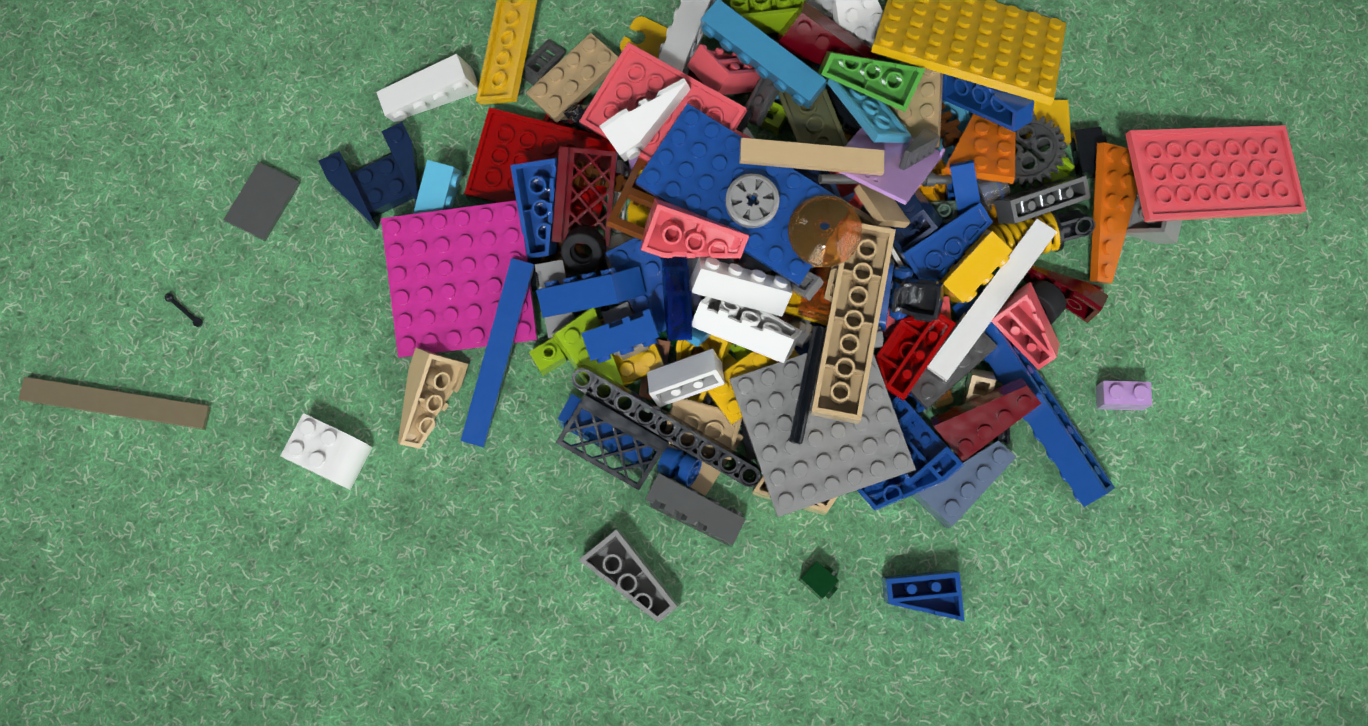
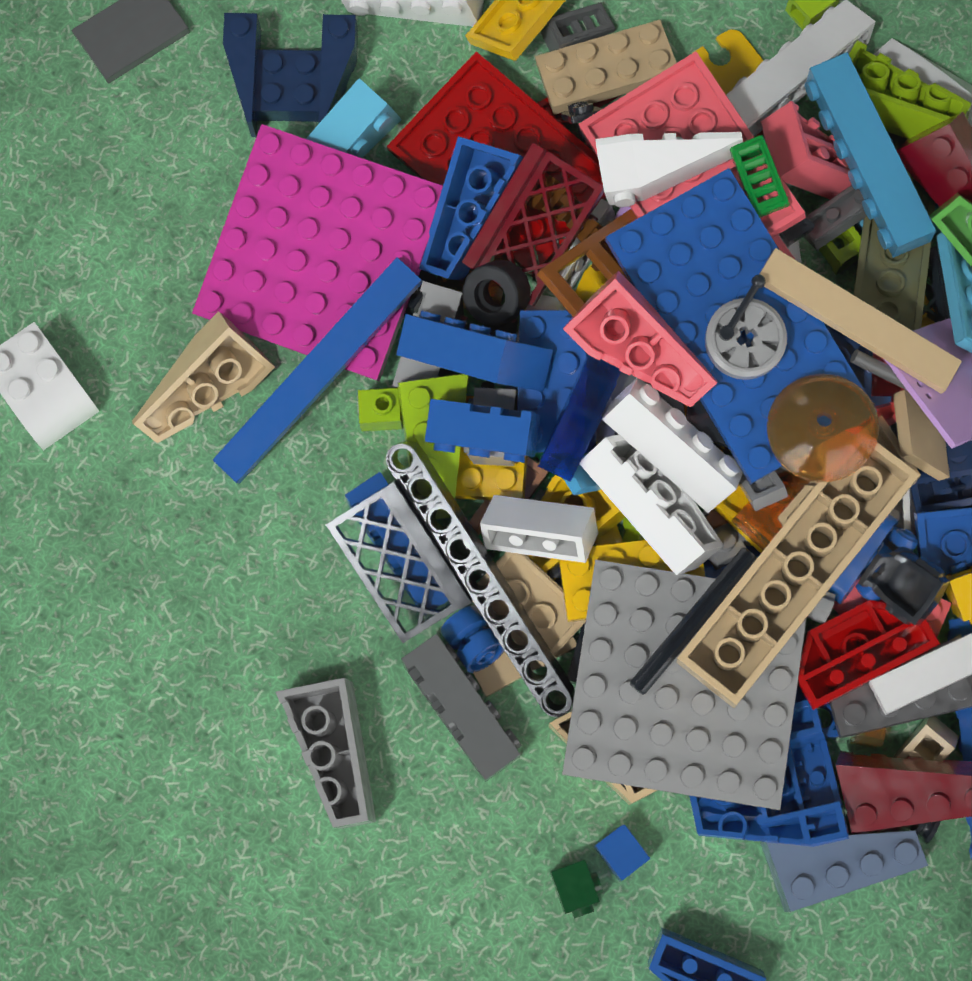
camera: 30 degrees right, 0 degrees up
(692, 87) = (749, 150): none -> green slope
(739, 203) = (727, 332): none -> black hinge
(835, 545) = (622, 852): none -> blue panel

